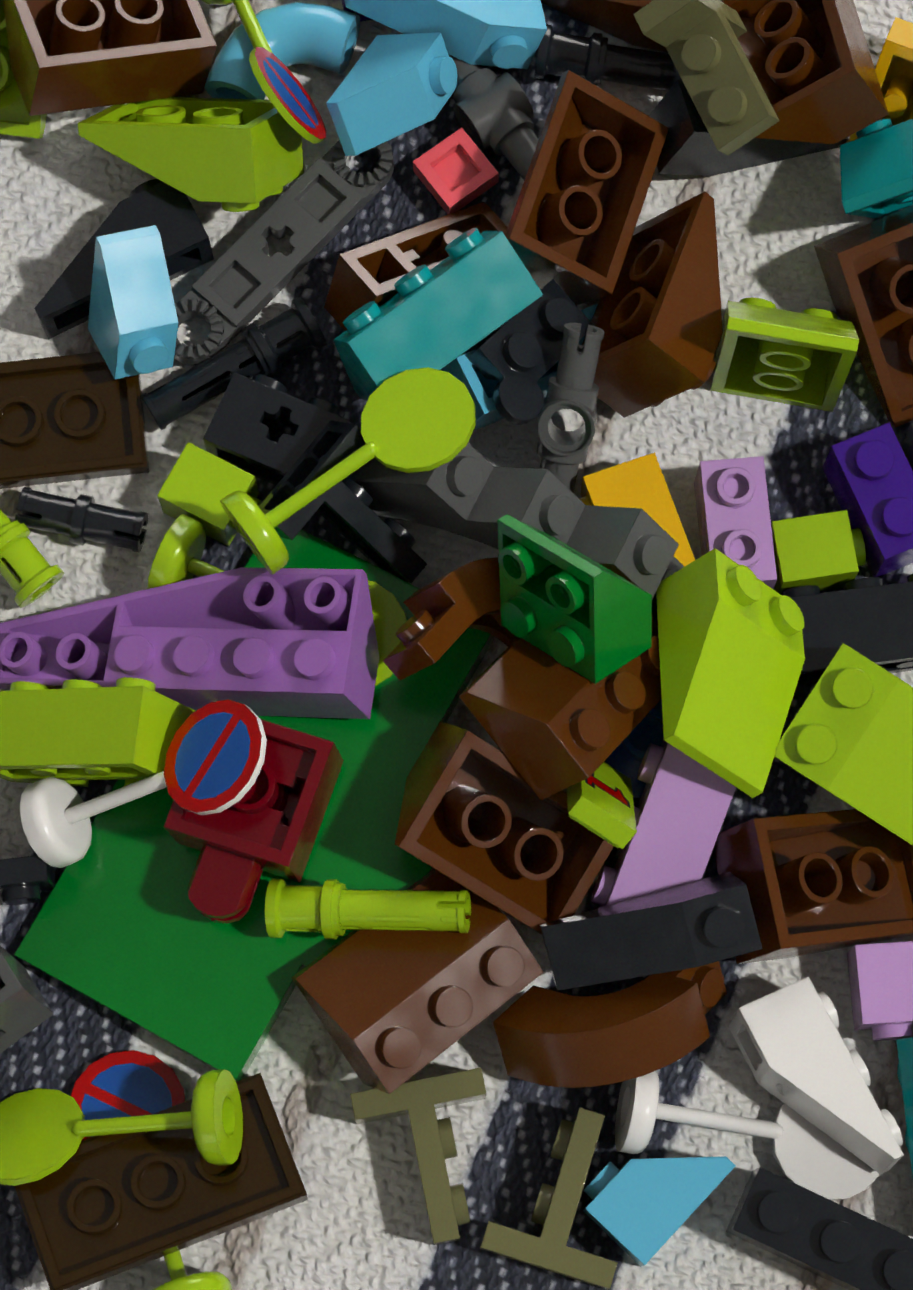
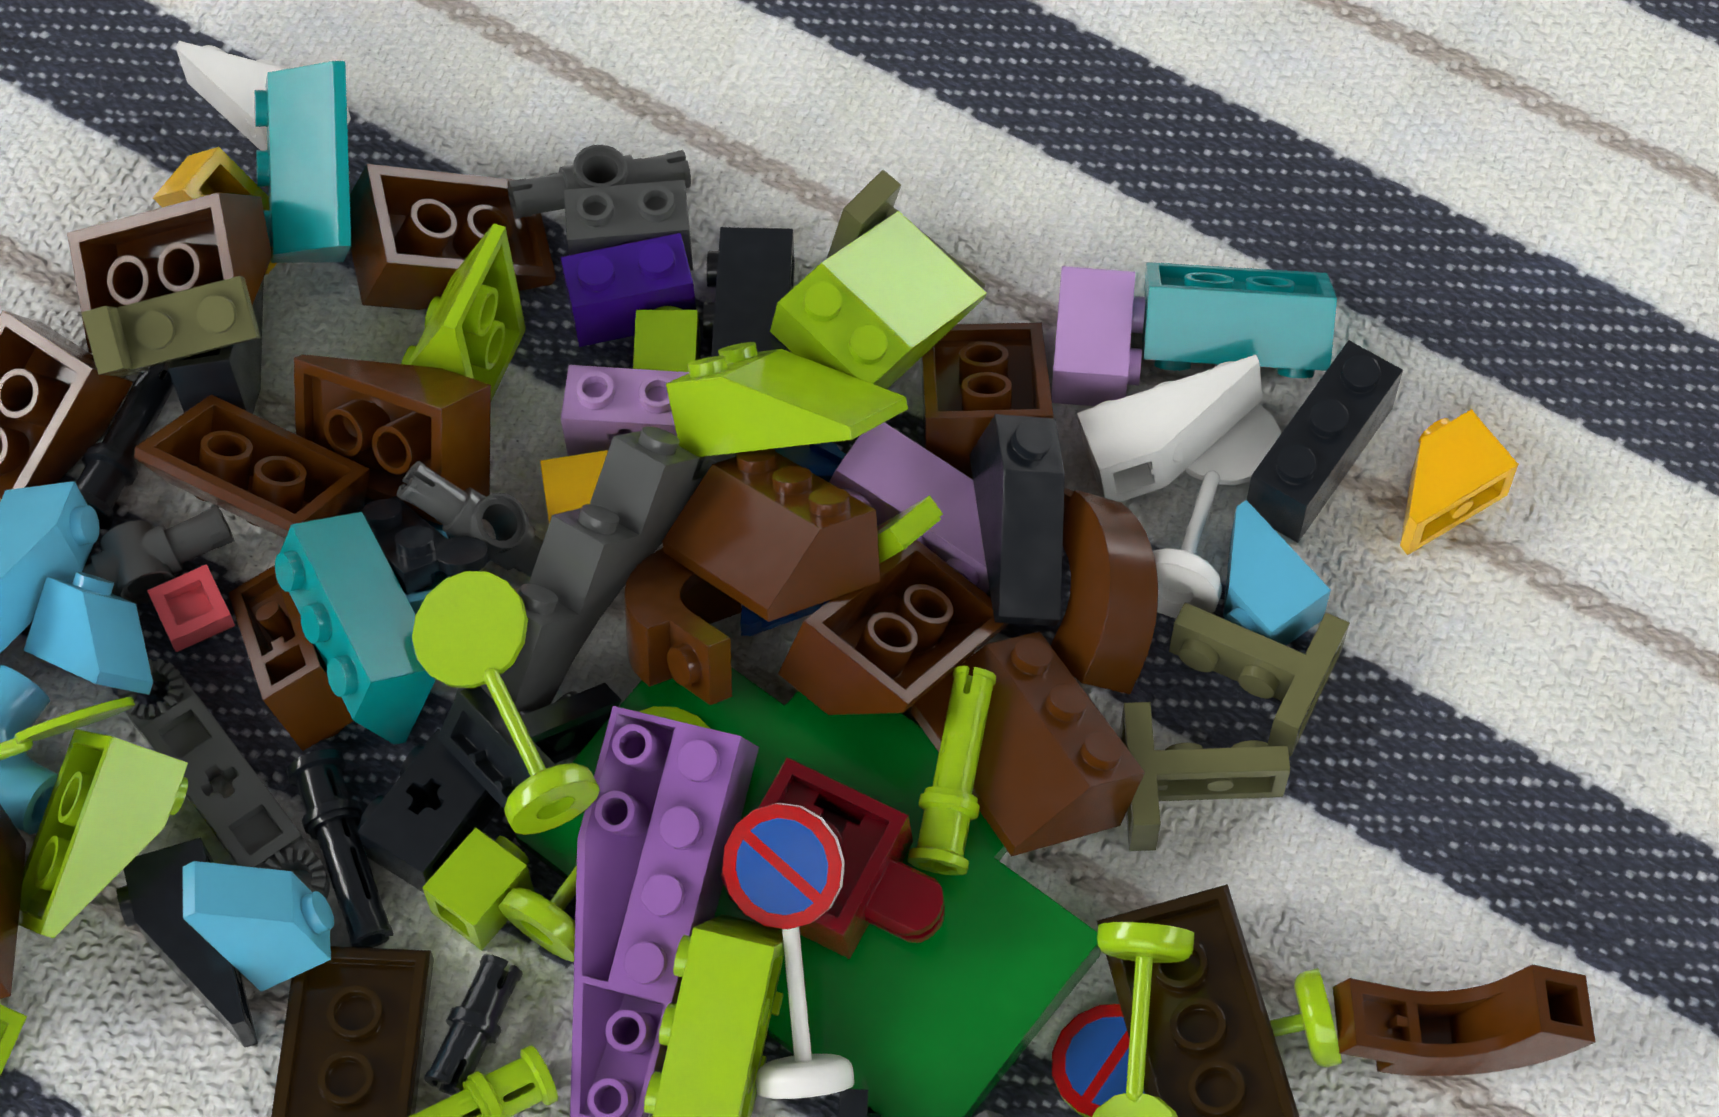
camera: 80 degrees left, 15 degrees down
(569, 603) = (694, 509): green slope -> none

